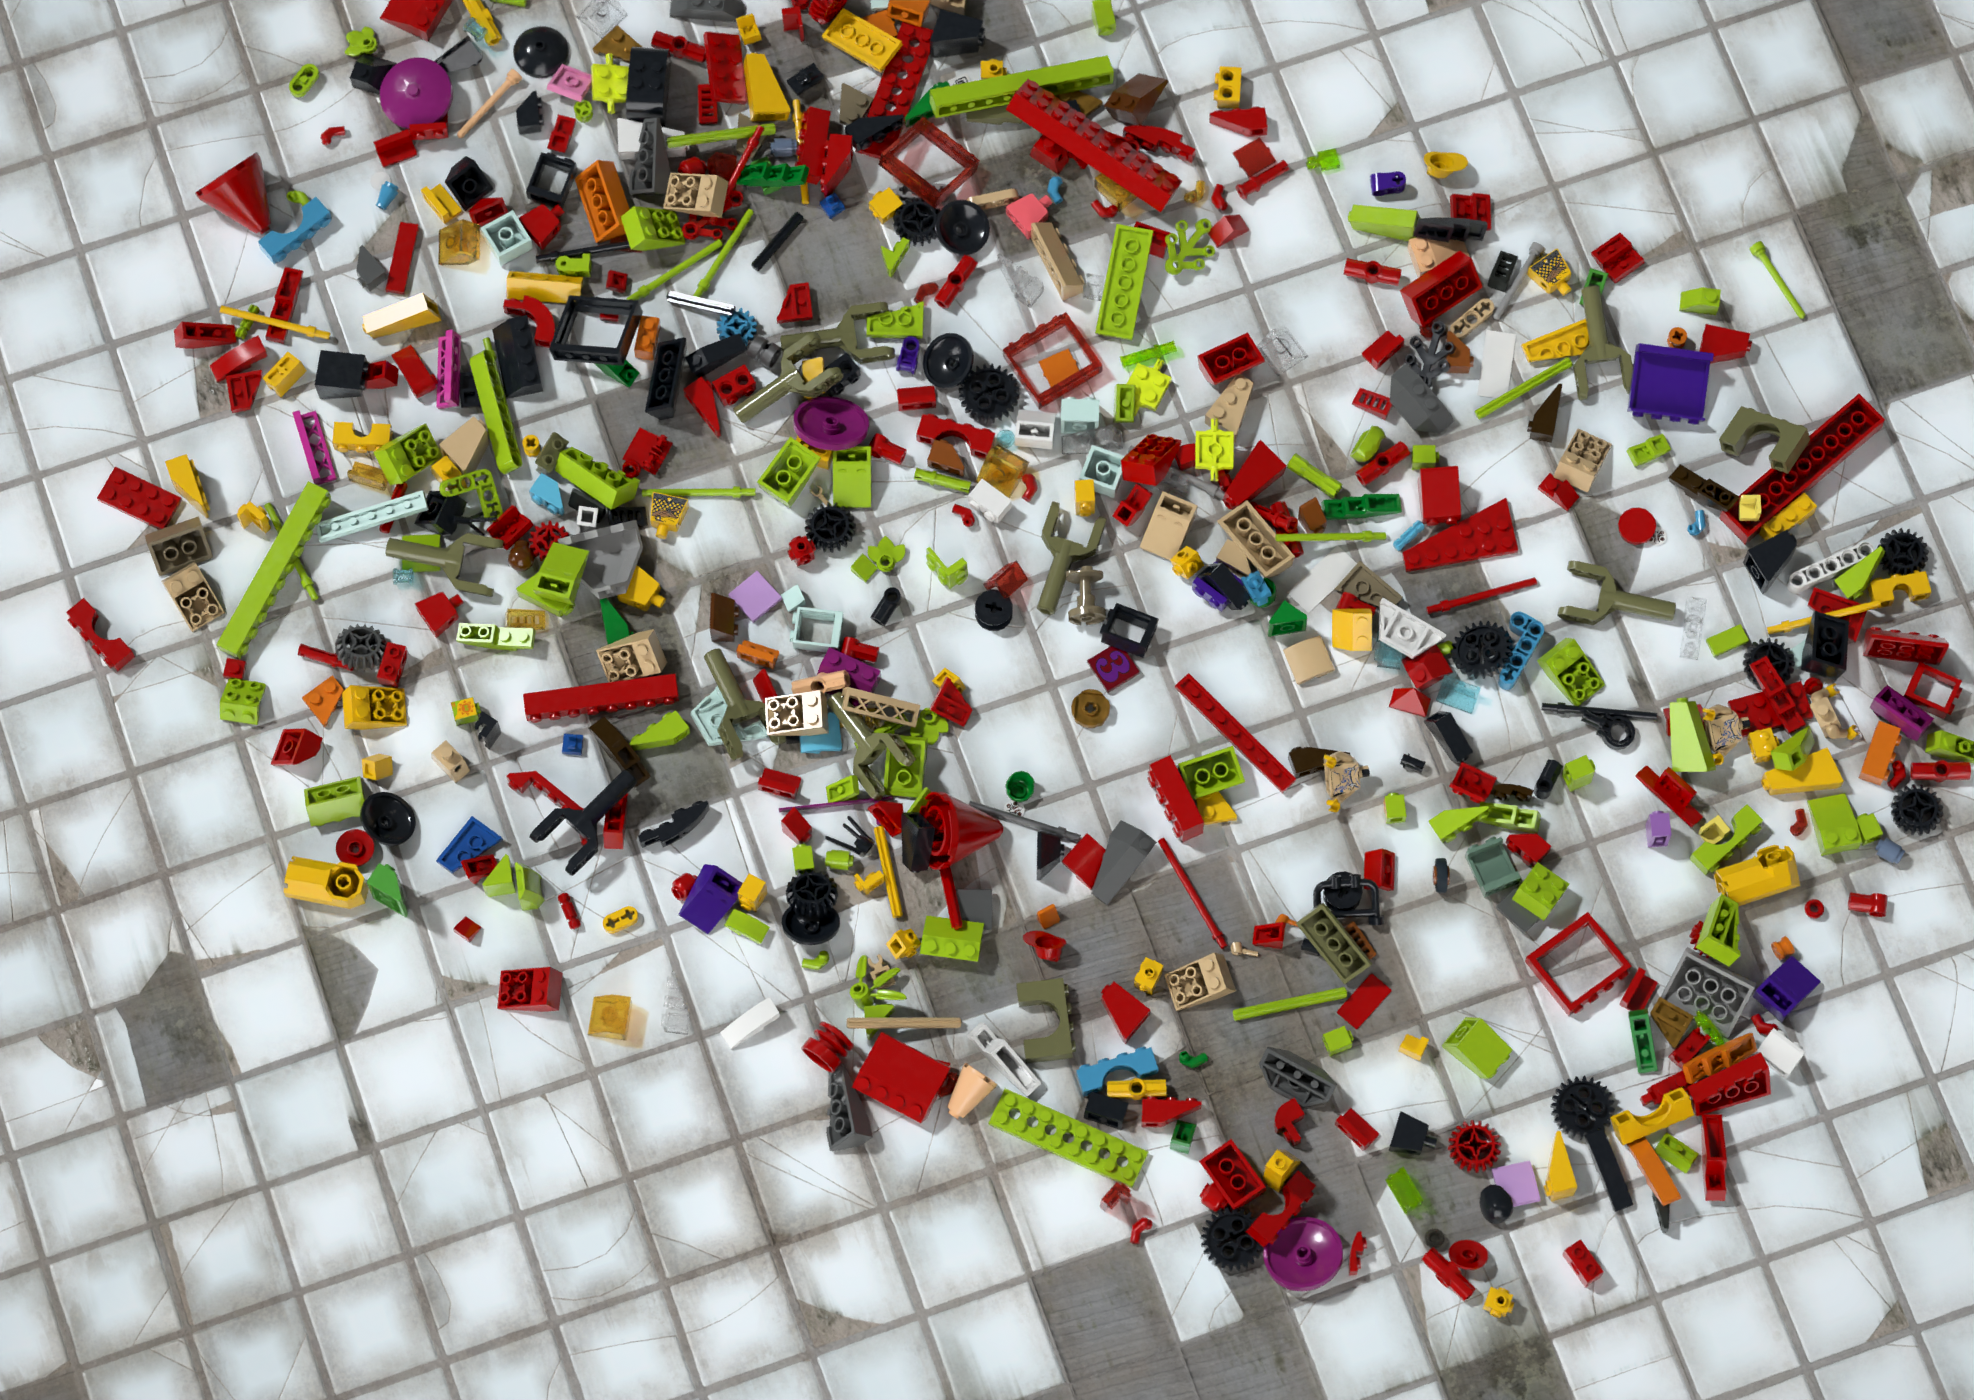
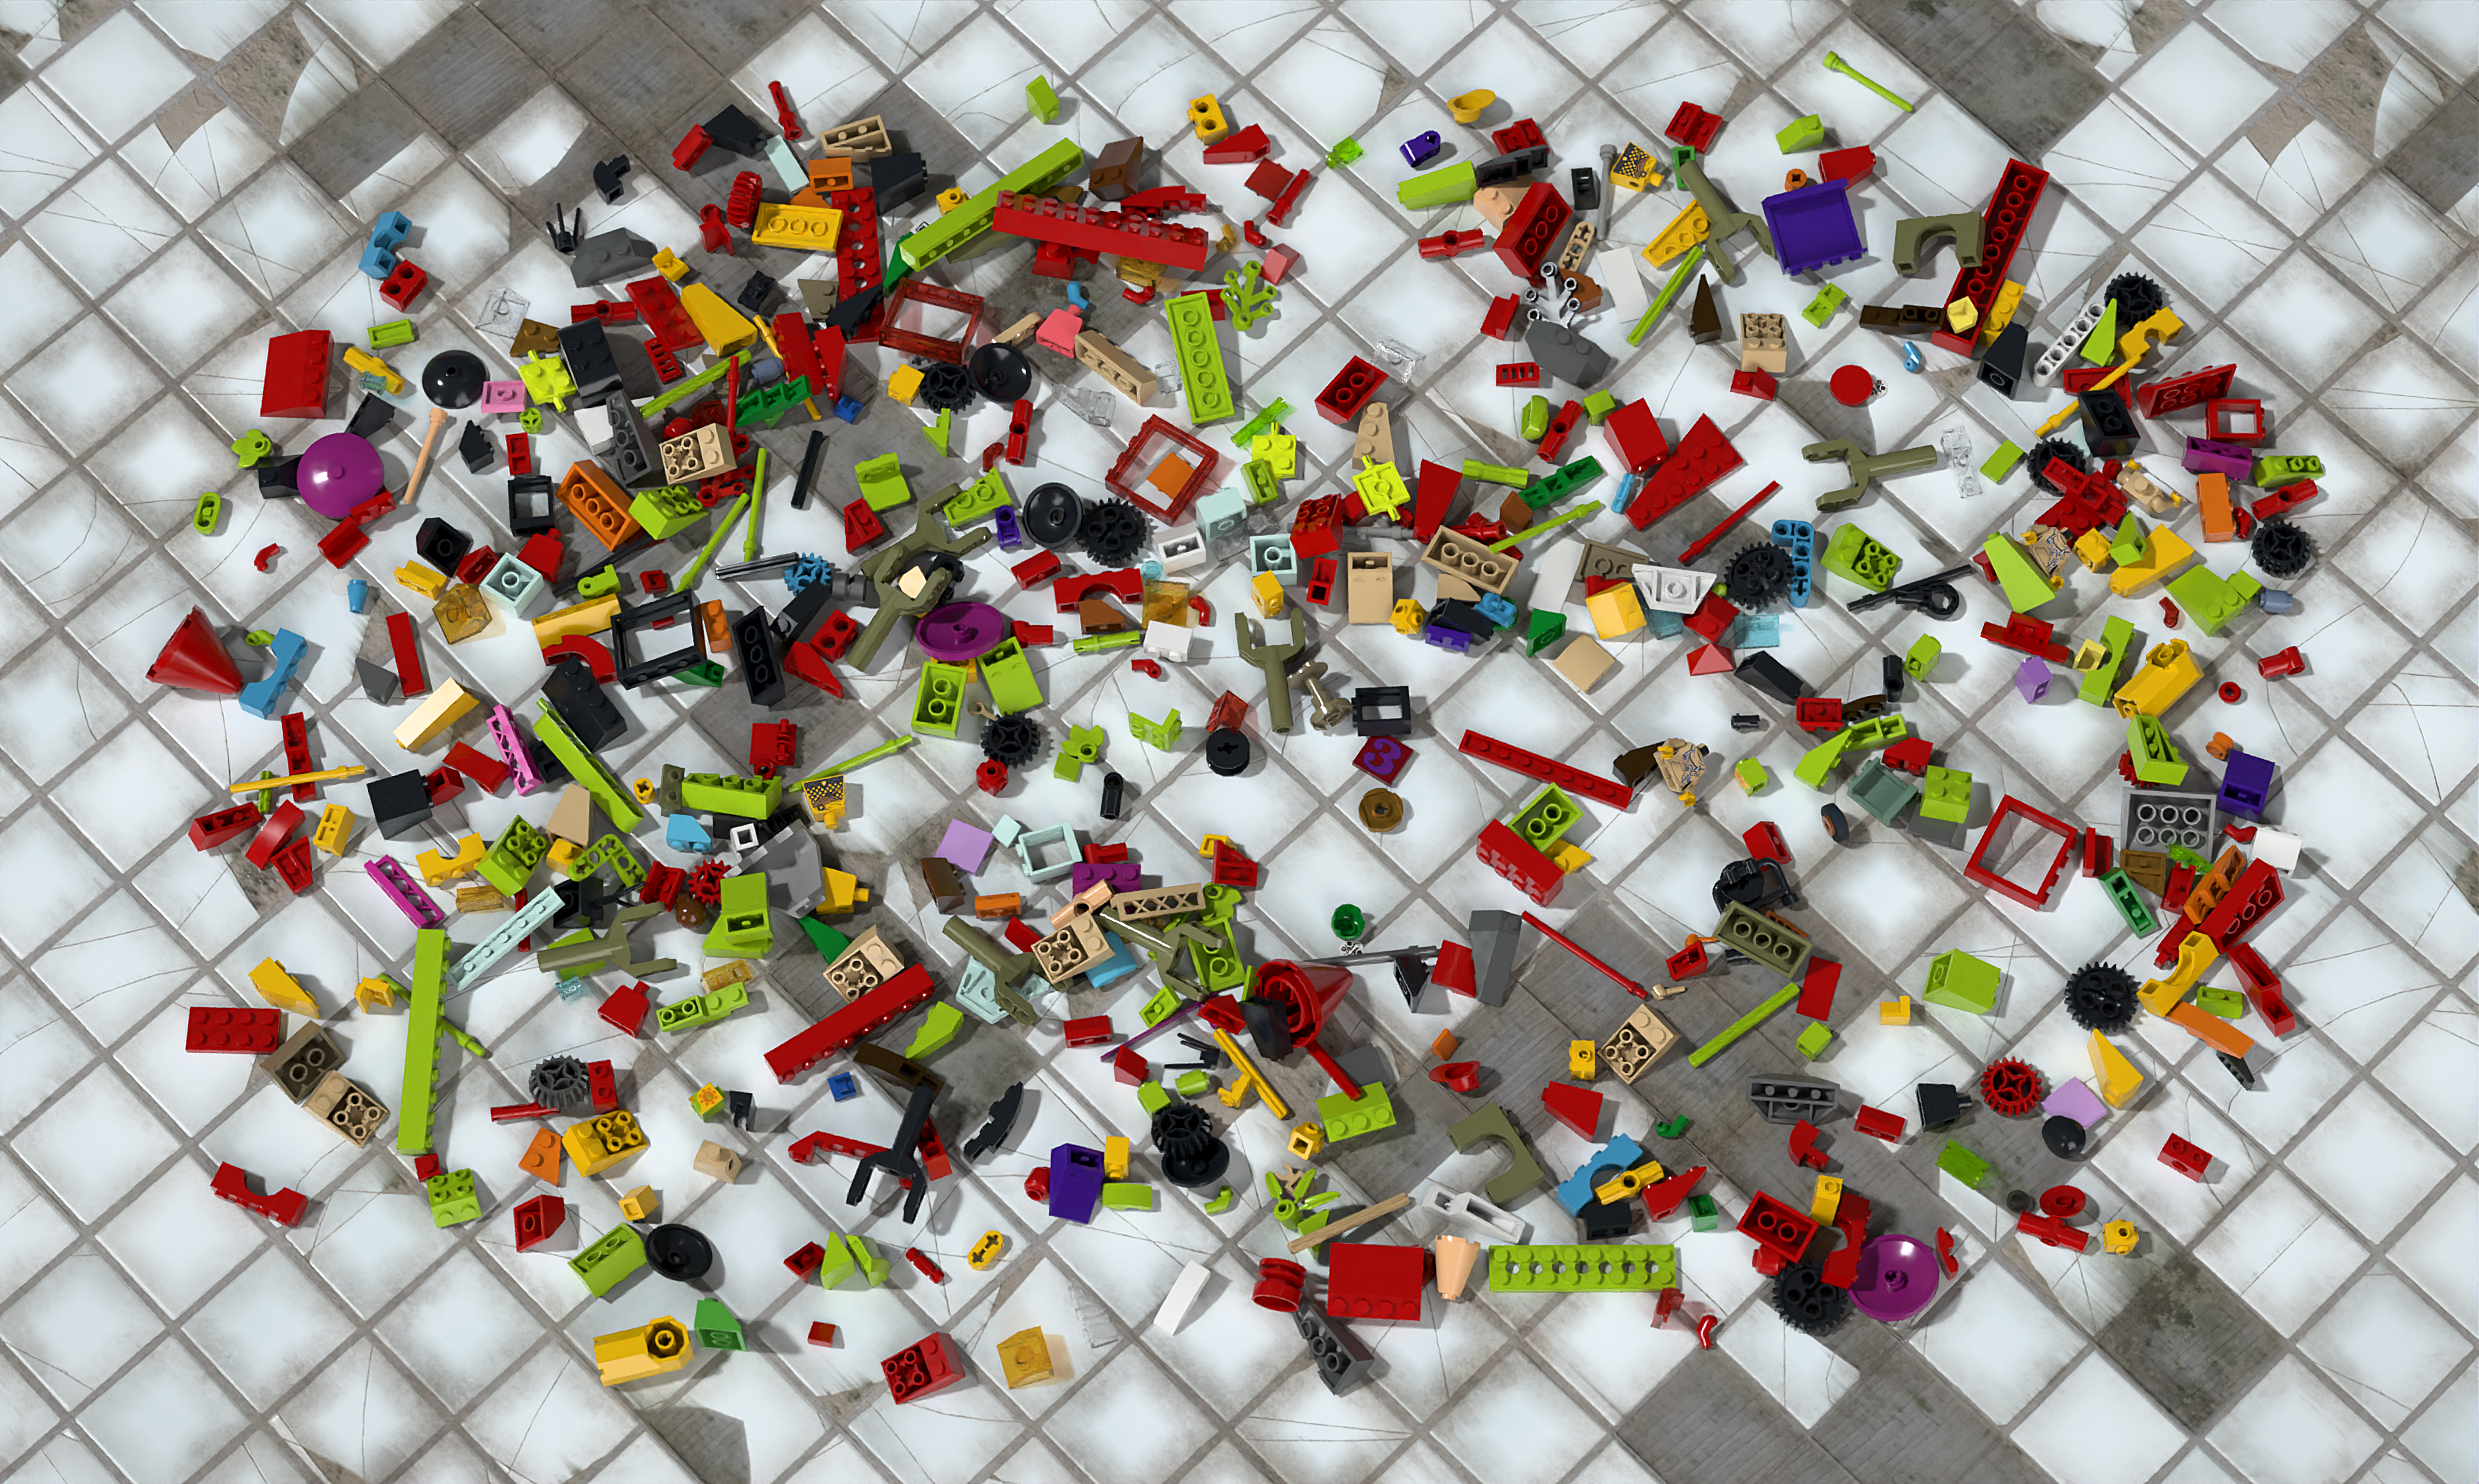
camera: 25 degrees left, 5 degrees down
(350, 840) = (653, 1290): red dish -> none
(467, 844) = (779, 1241): blue wing -> none
(829, 277) = (882, 482): none -> lime bracket
(1608, 1169) = (2161, 1049): black slope -> none

